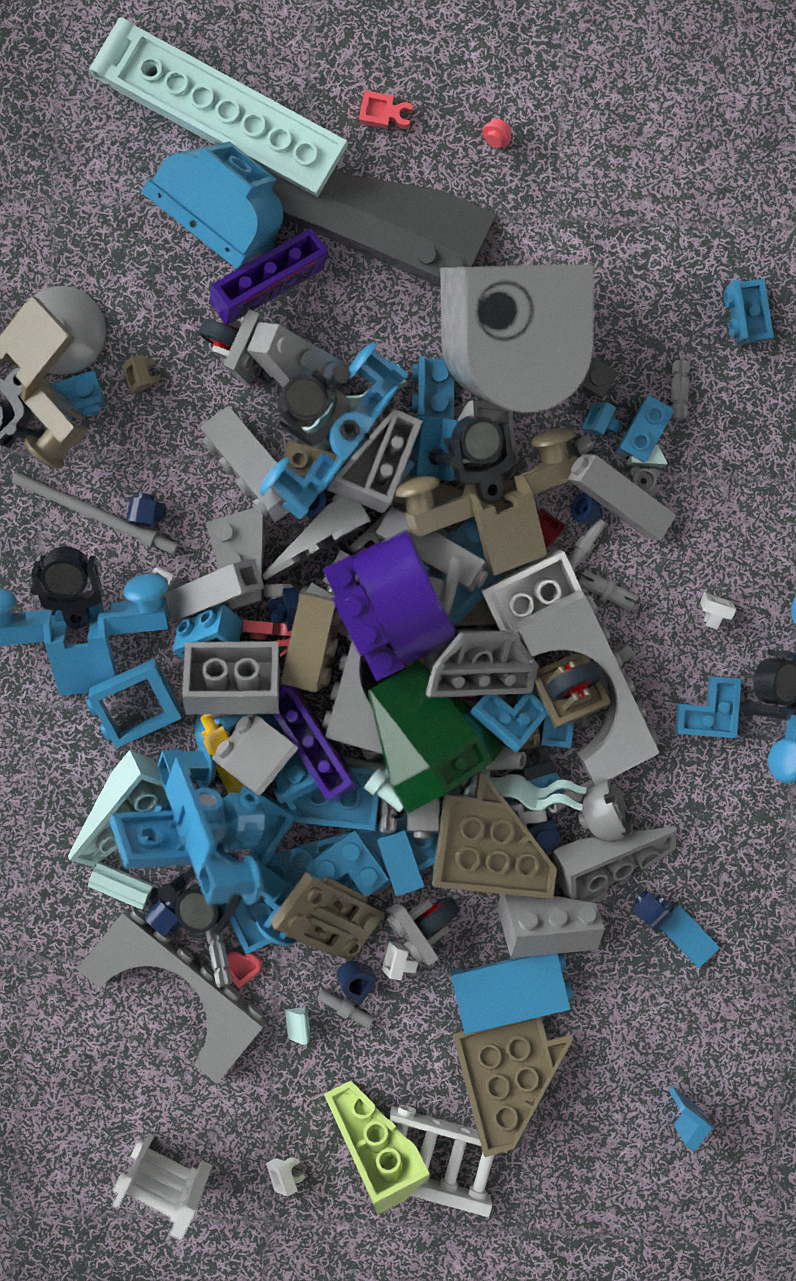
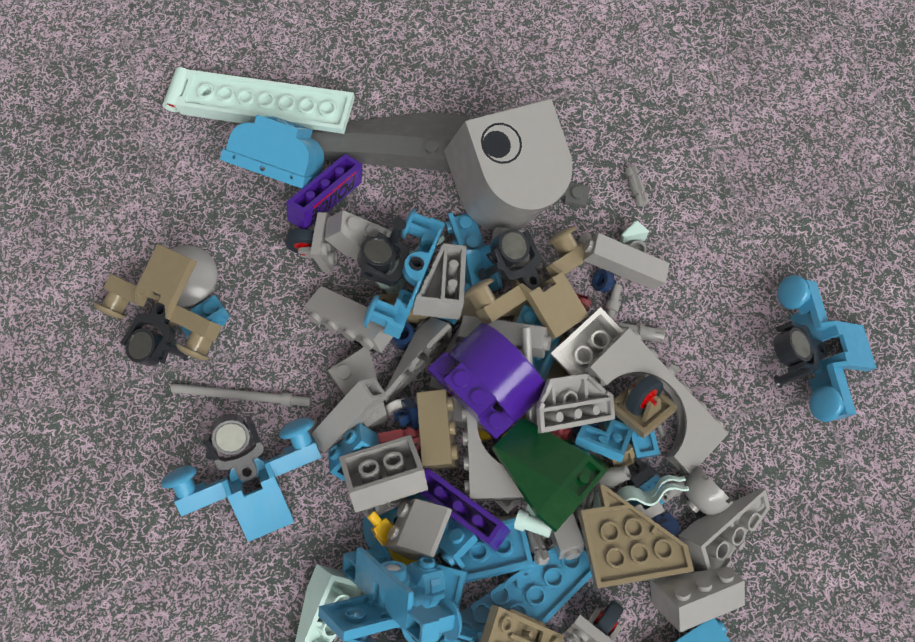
camera: 20 degrees left, 20 degrees down
(137, 373) = (247, 286): dark tan tile -> none
(145, 510) = (279, 380): dark blue plate -> none
(153, 673) = (281, 537): dark azure window -> none
(351, 857) = (525, 594): dark azure plate -> none
(379, 110) = (369, 76): coral plate -> none
(400, 862) = (562, 585): dark azure tile -> none
(497, 133) = (452, 67): coral plate -> none
(600, 419) = (590, 219): dark azure tile -> none
(645, 429) = (624, 214): dark azure bracket -> none
(652, 910) = (774, 559): dark blue plate -> none
(689, 936) = (809, 573): dark azure tile -> none
(716, 609) = (724, 321): white tile -> none
(720, 714) = (758, 395): dark azure plate -> none
(749, 311) = (663, 124): dark azure bracket -> none

